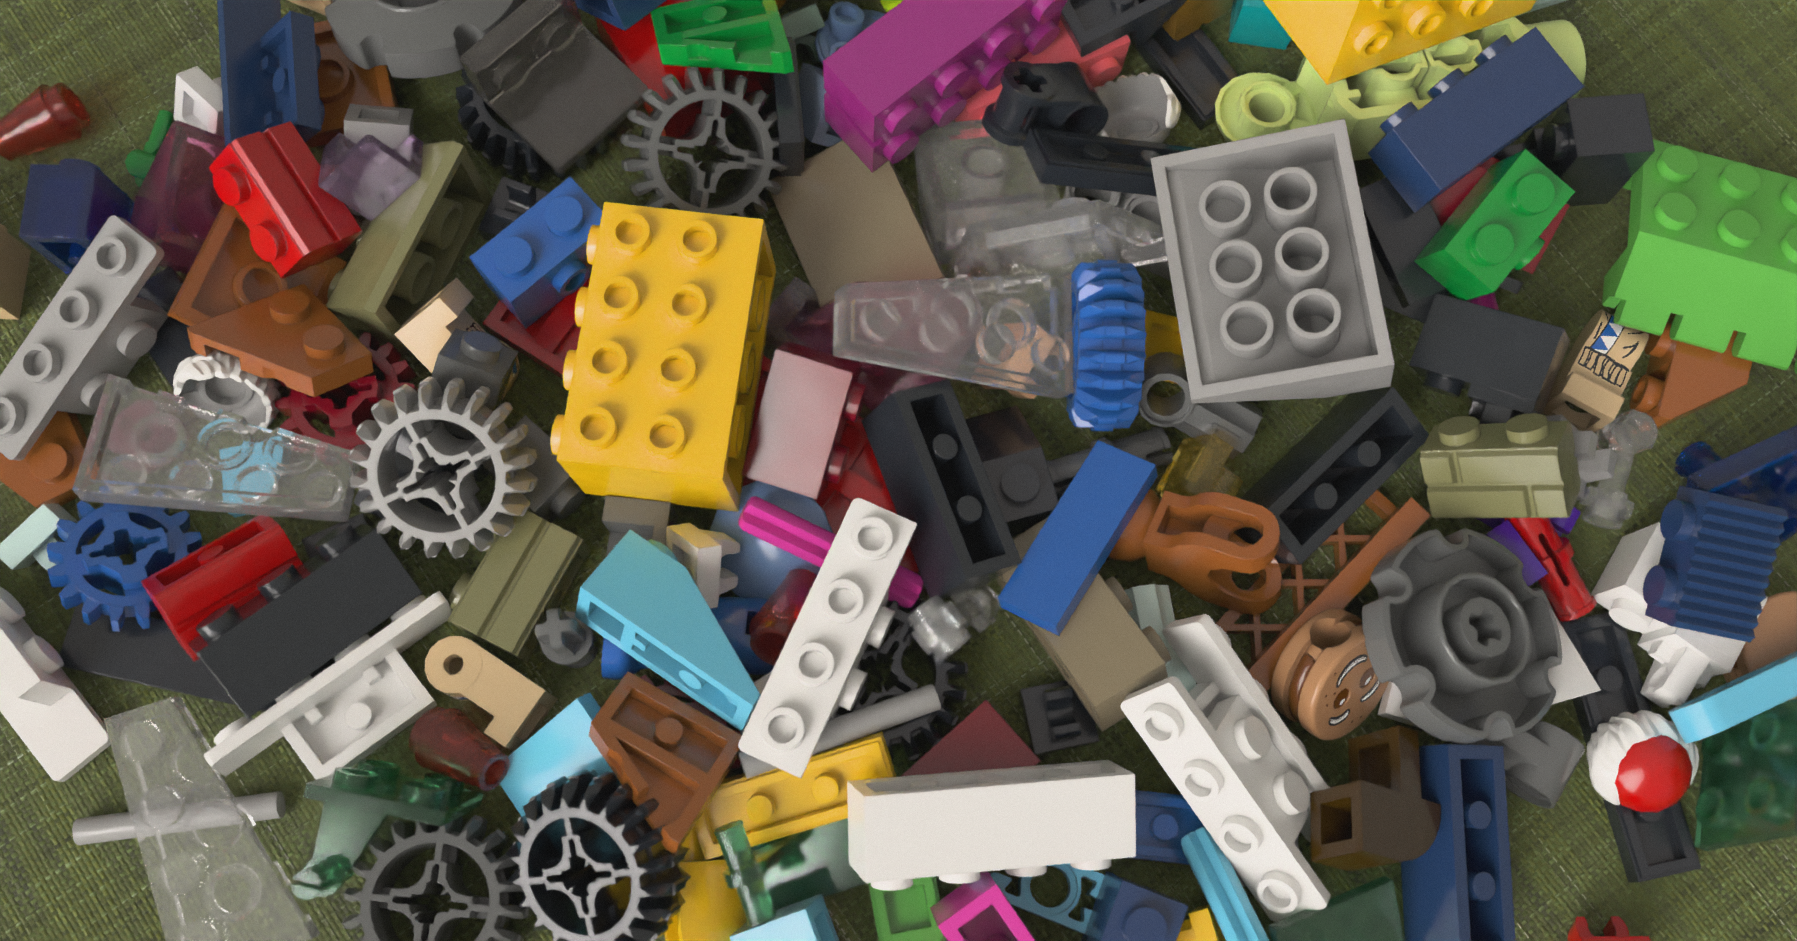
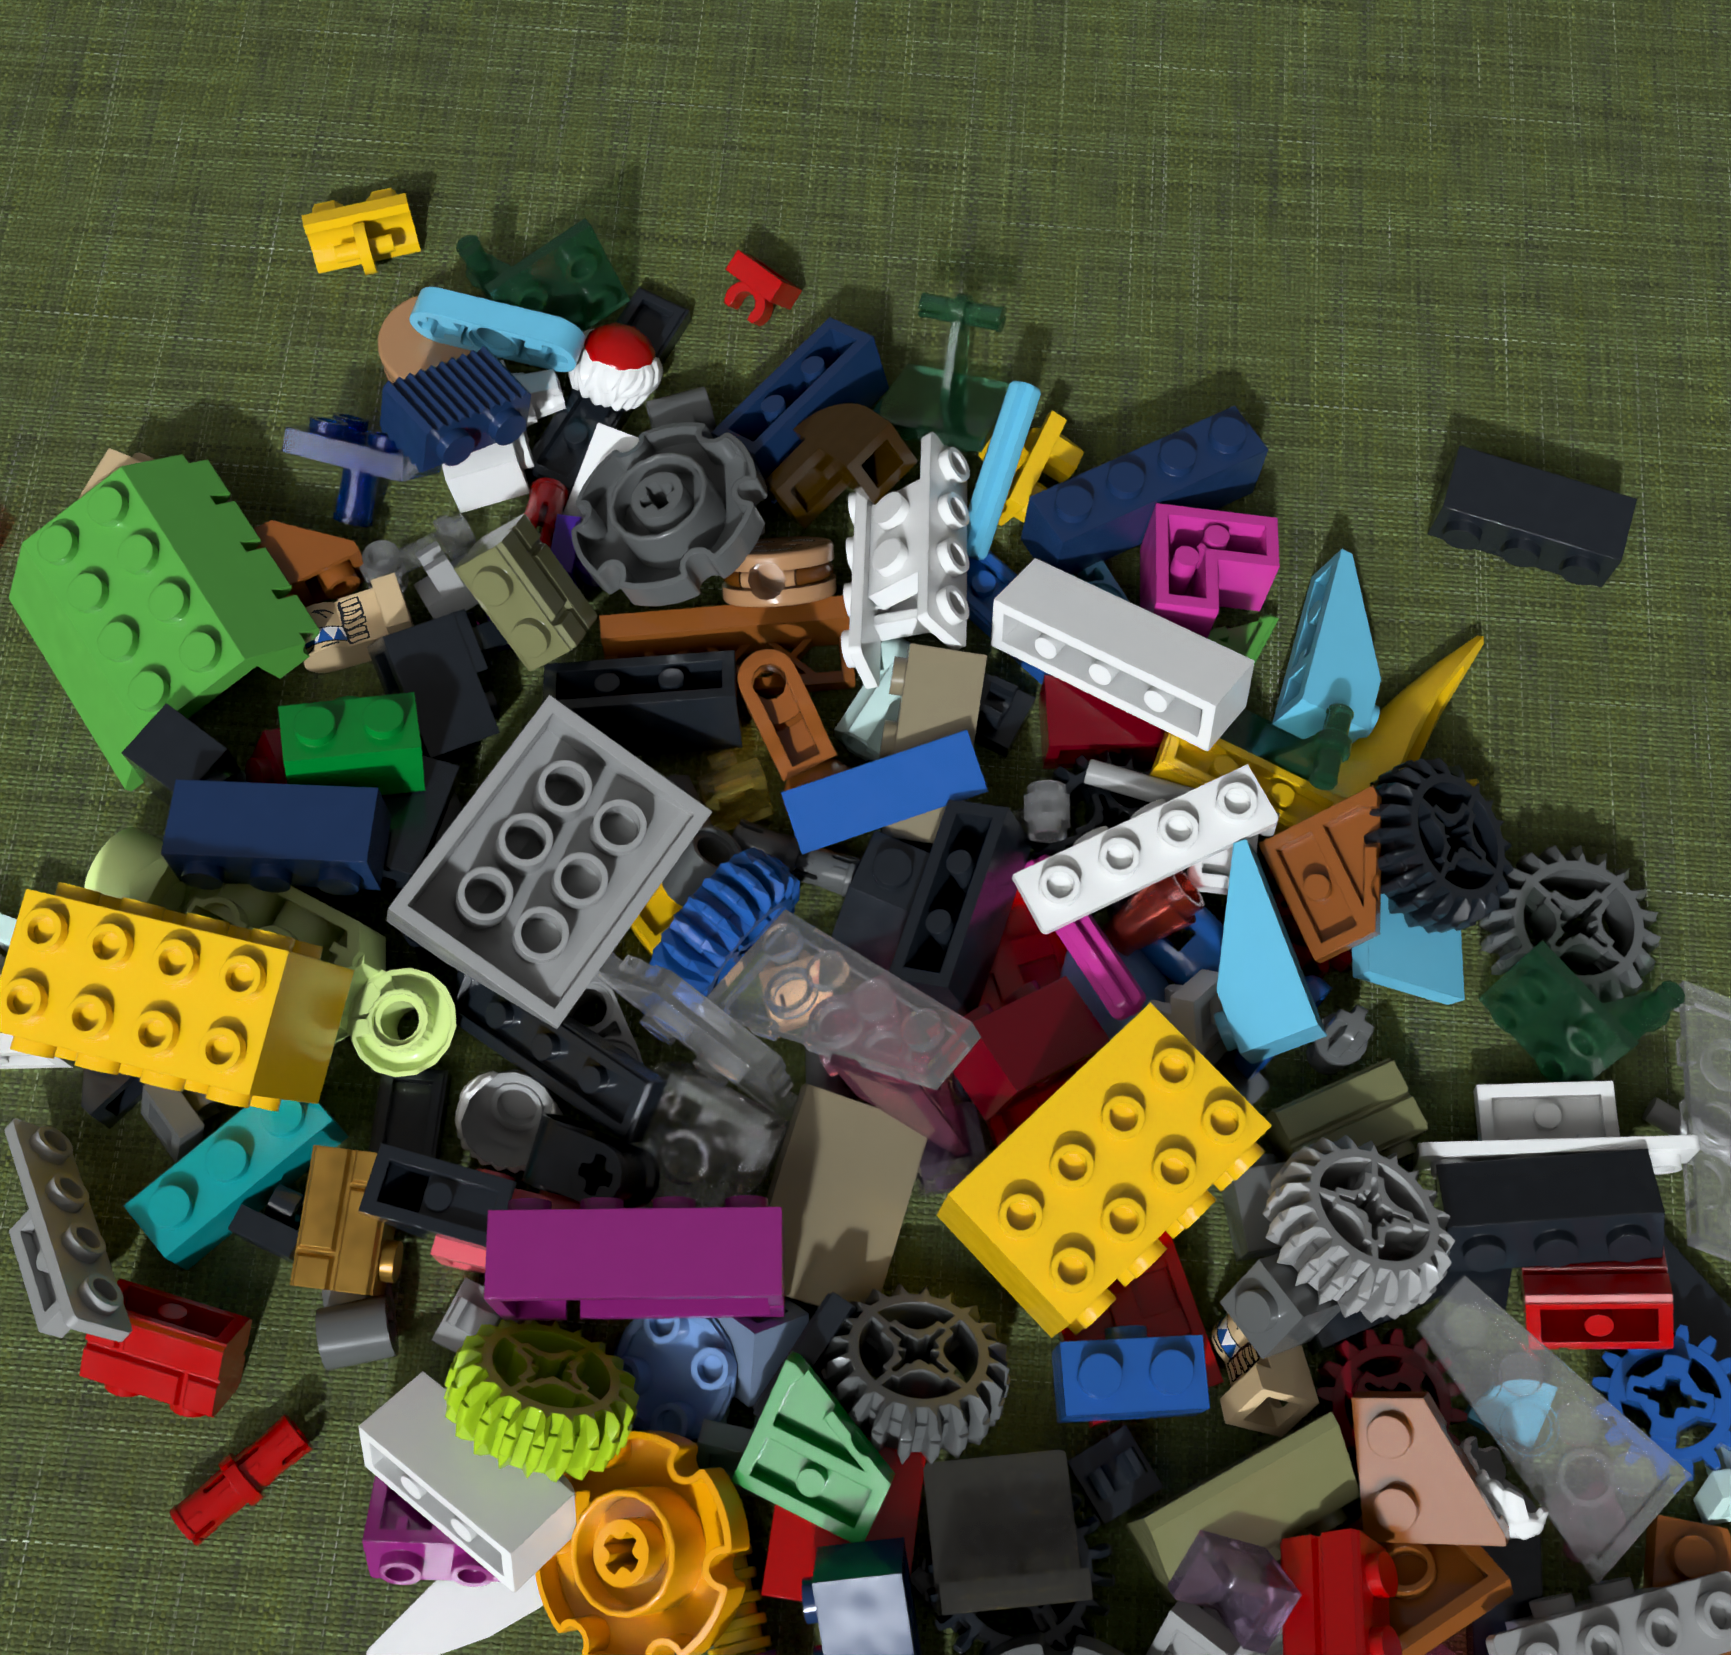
camera: 140 degrees left, 5 degrees down
(457, 748) = (1481, 1029): clear red cone -> none
(474, 674) = (1420, 1052): tan leg -> none

